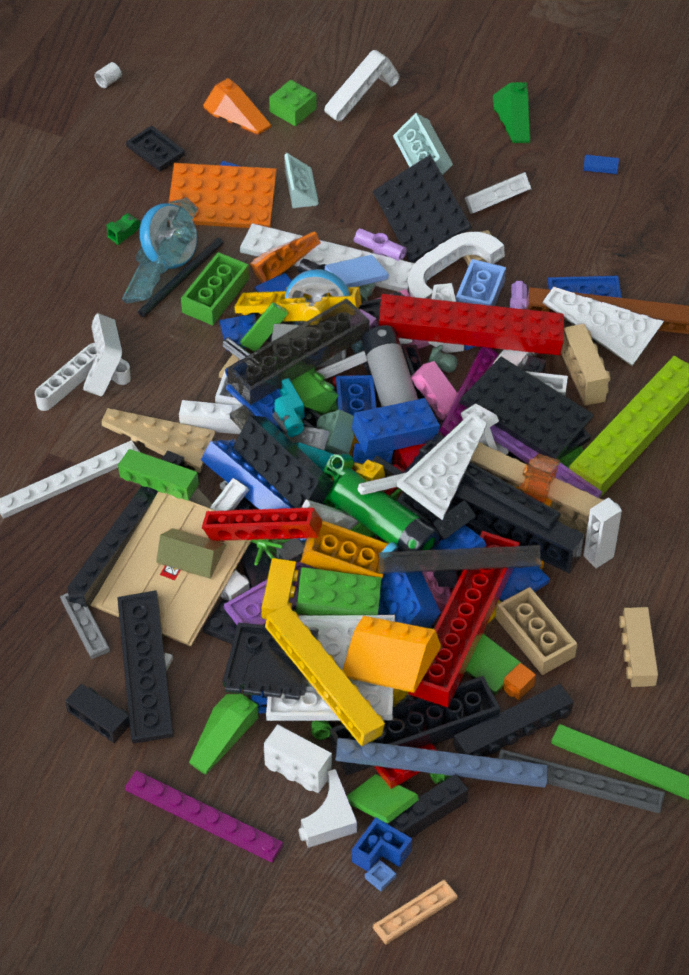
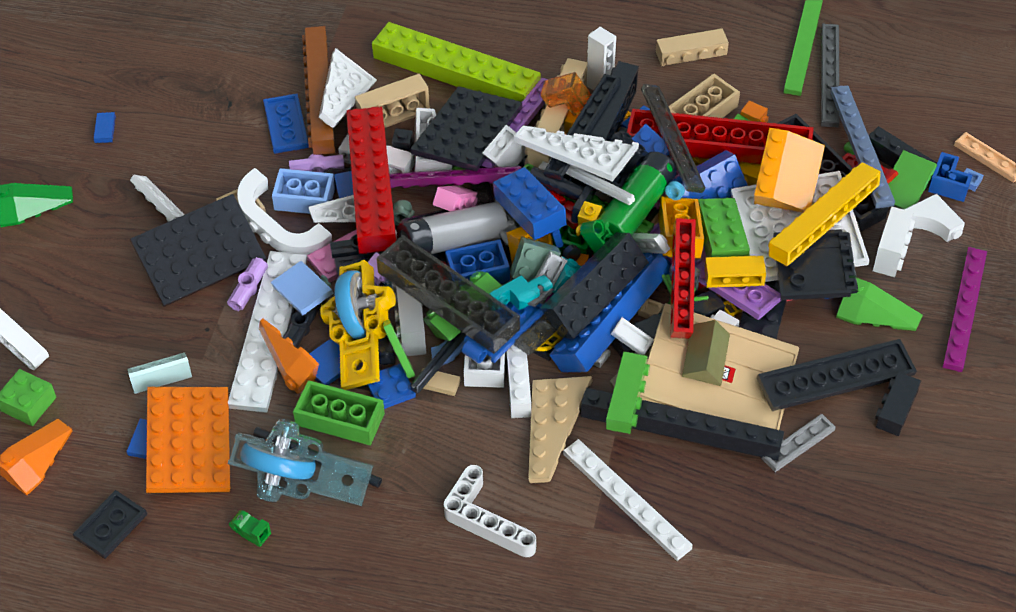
camera: 100 degrees left, 0 degrees up
(108, 354) = (455, 487): white beam -> none
(419, 140) = (96, 269): light aqua slope -> none
(514, 723) = (784, 104): black brick -> none

